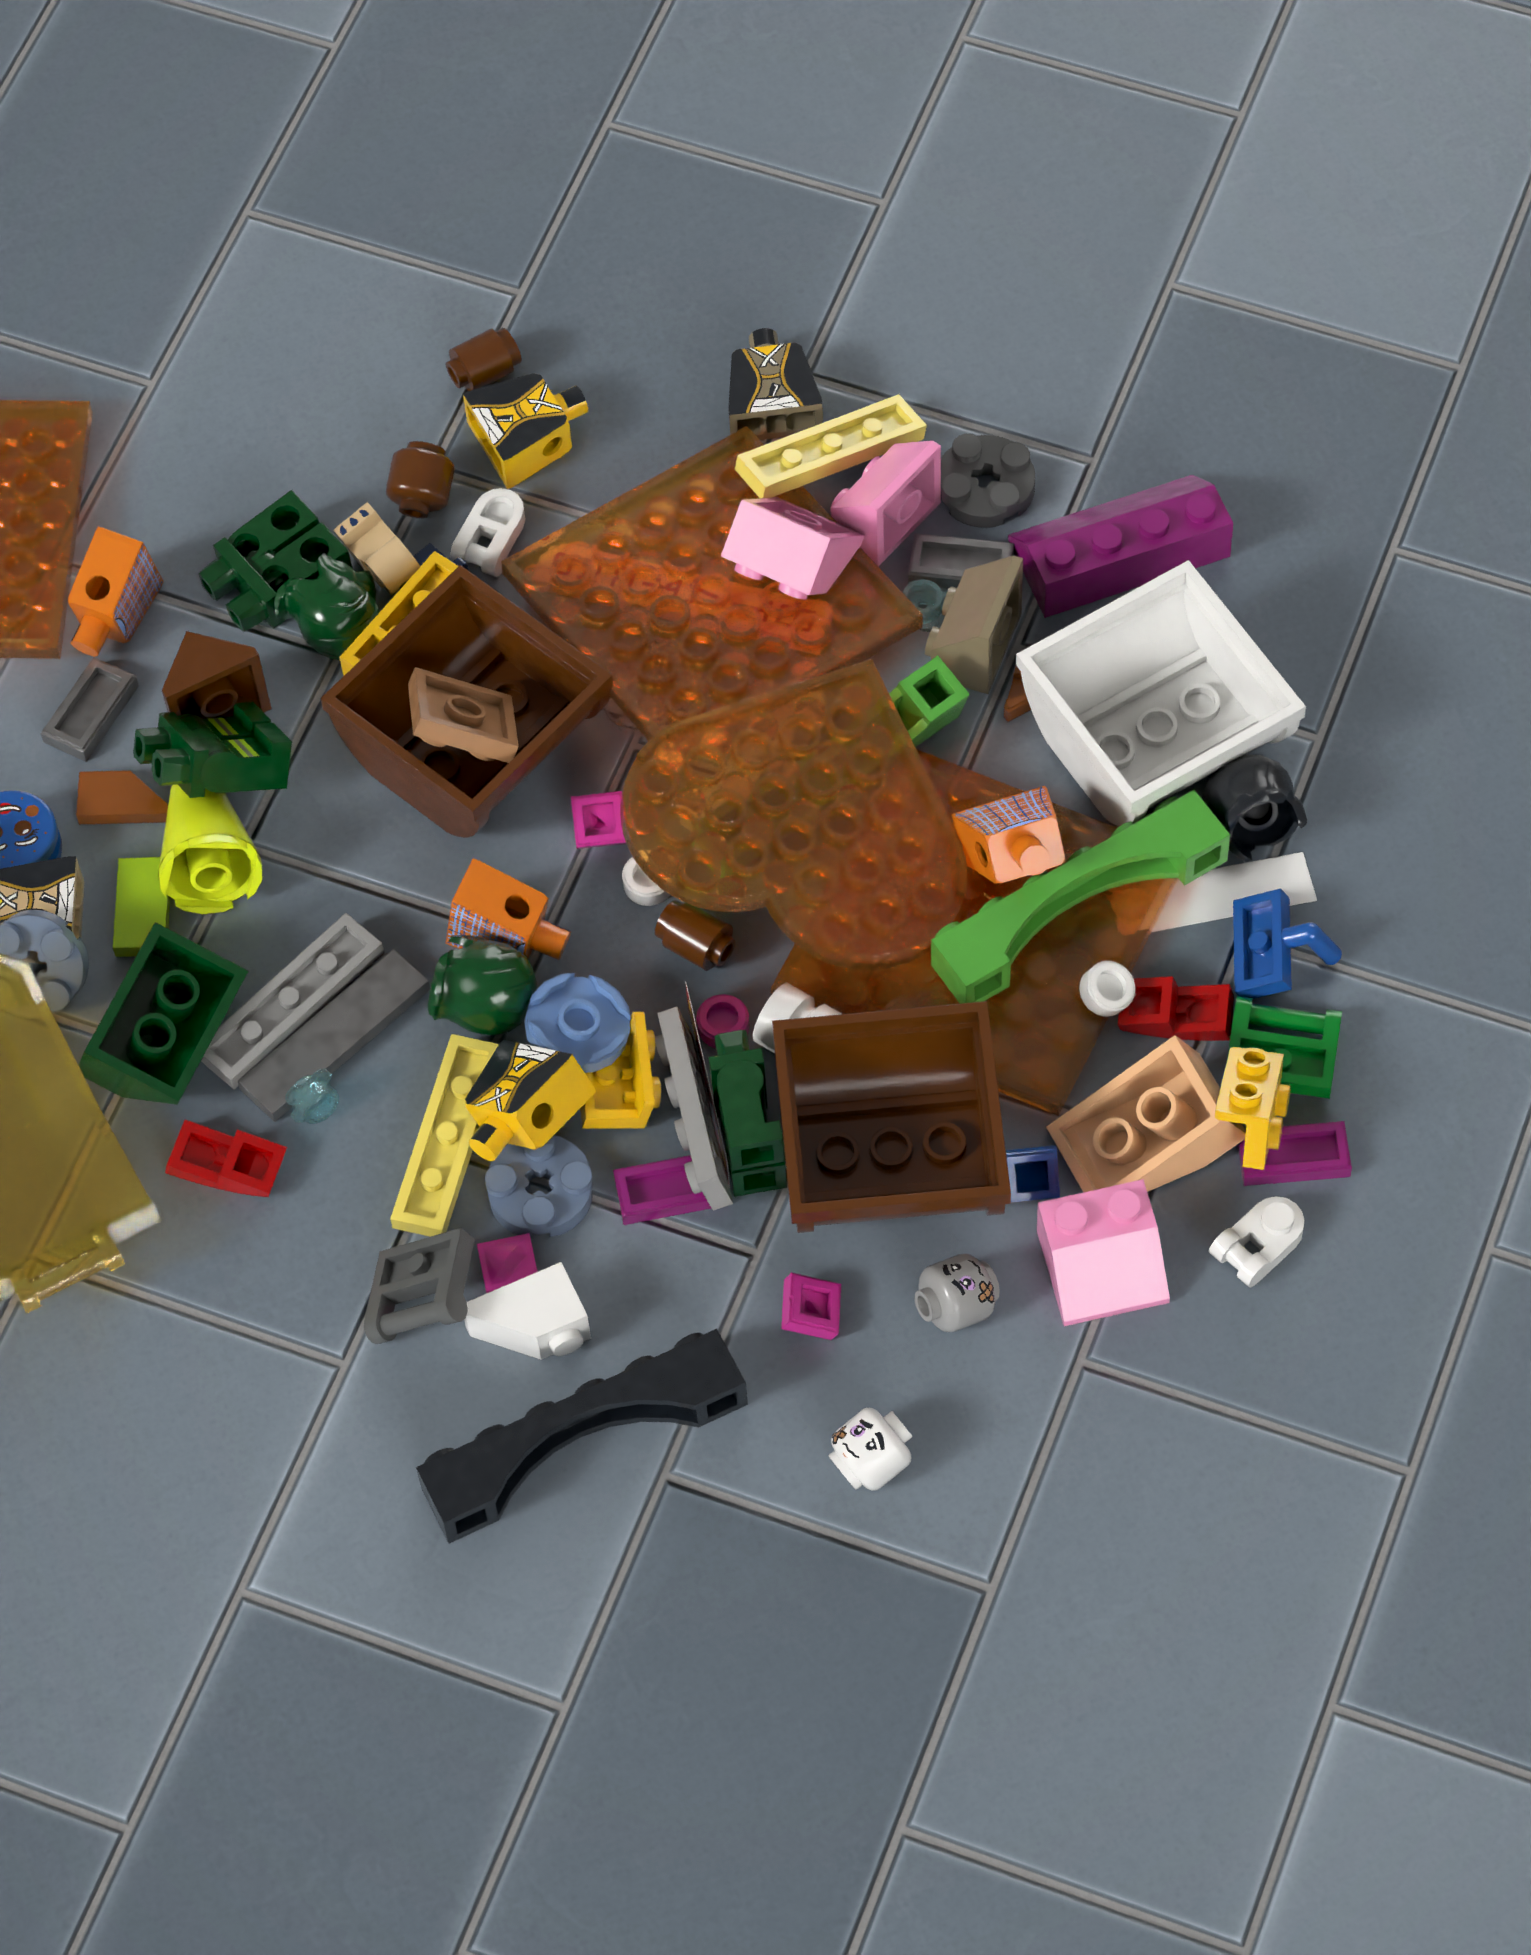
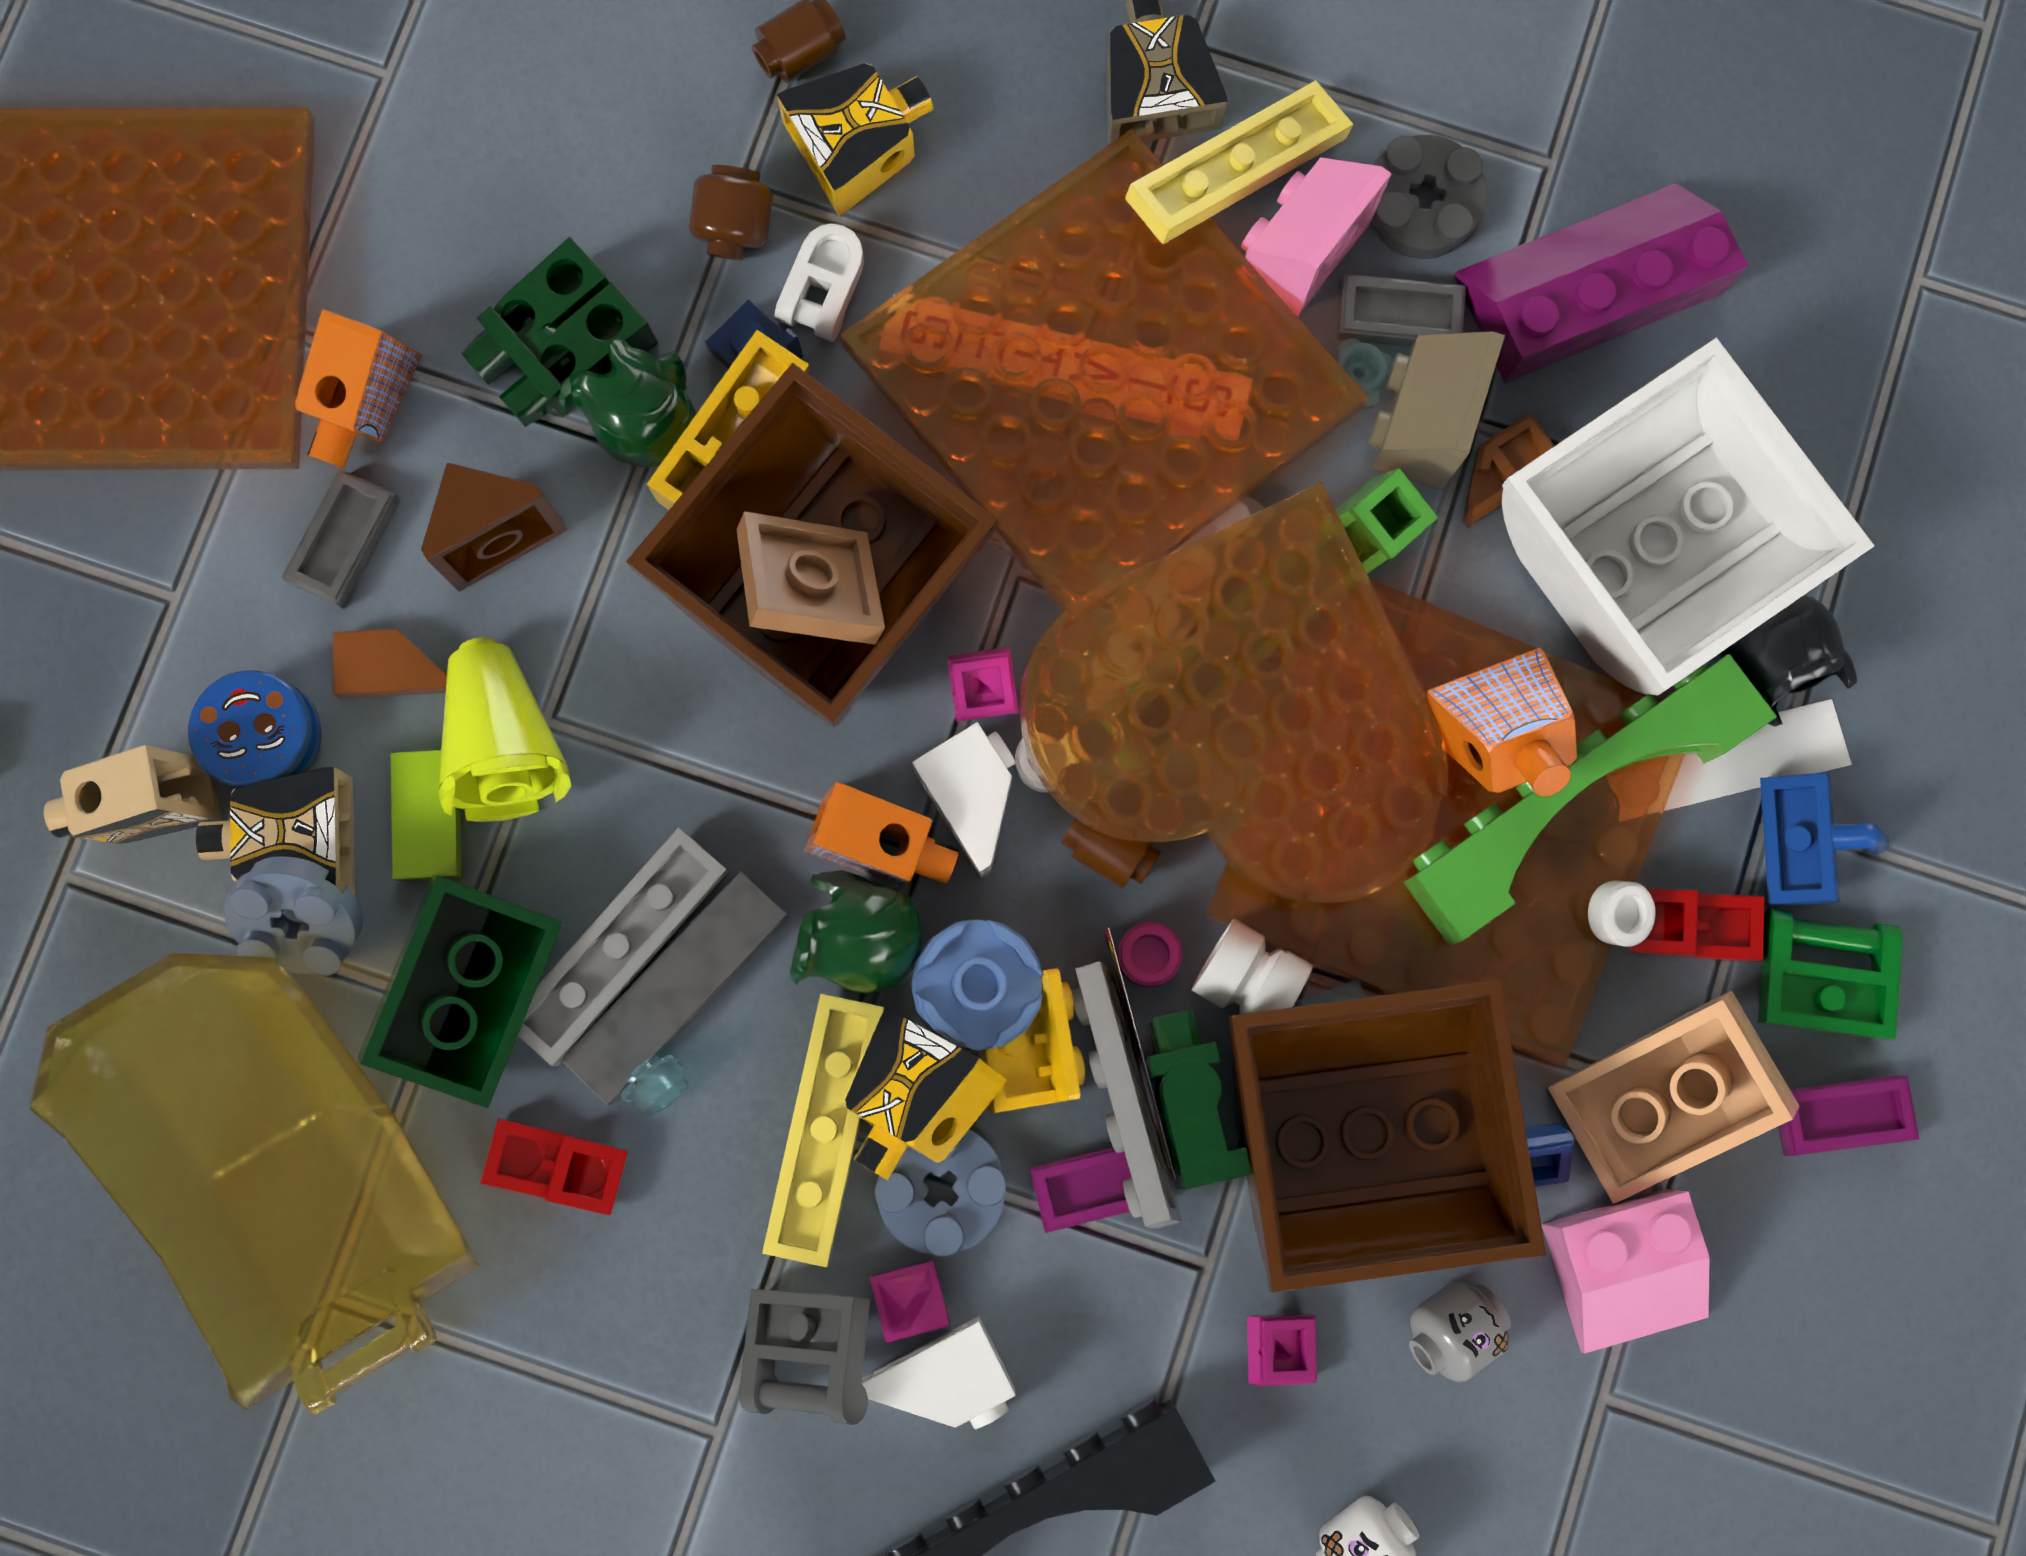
camera: 10 degrees left, 20 degrees up
(217, 752) = (497, 620): dark green hips -> none
(377, 548) = (685, 317): tan leg -> none
(582, 893) = (970, 790): none -> white slope
(789, 546) = (1203, 311): bright pink slope -> none
(1254, 1096) = (1818, 1079): yellow bracket -> none
(1272, 1226) = (1830, 1218): white plate -> none

